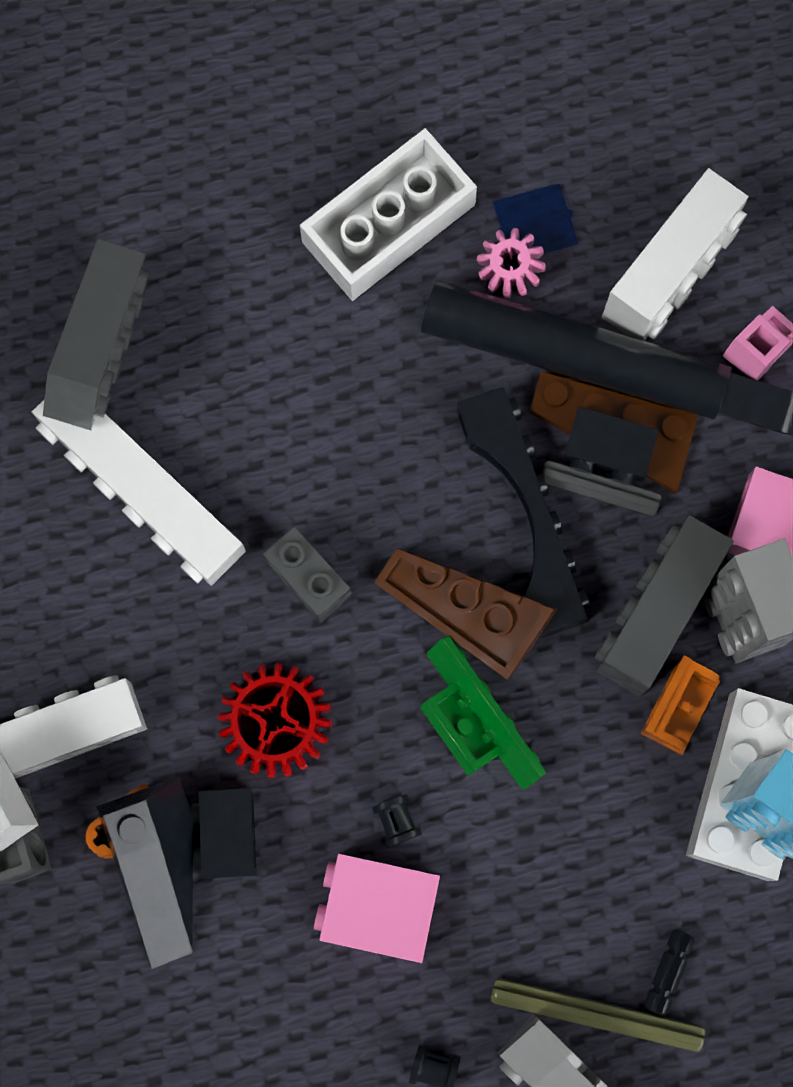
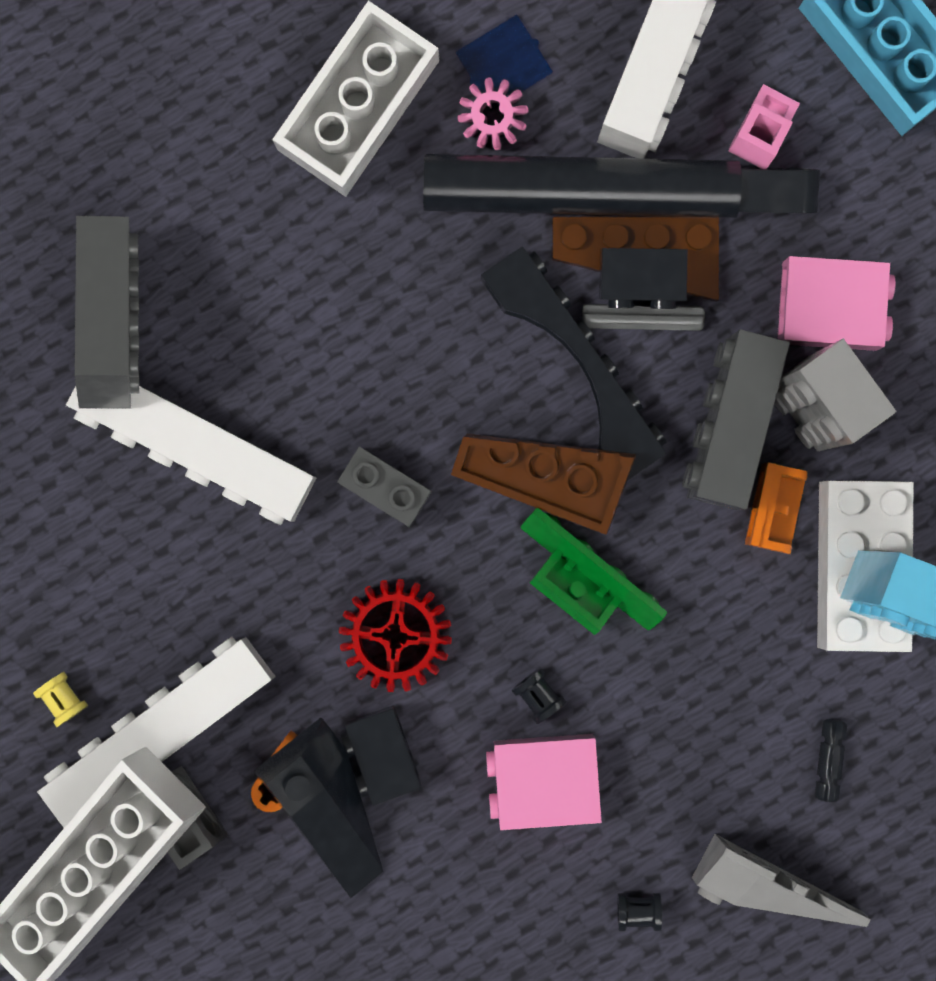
camera: 20 degrees left, 10 degrees up
(598, 1014) = (775, 818): olive axle -> none

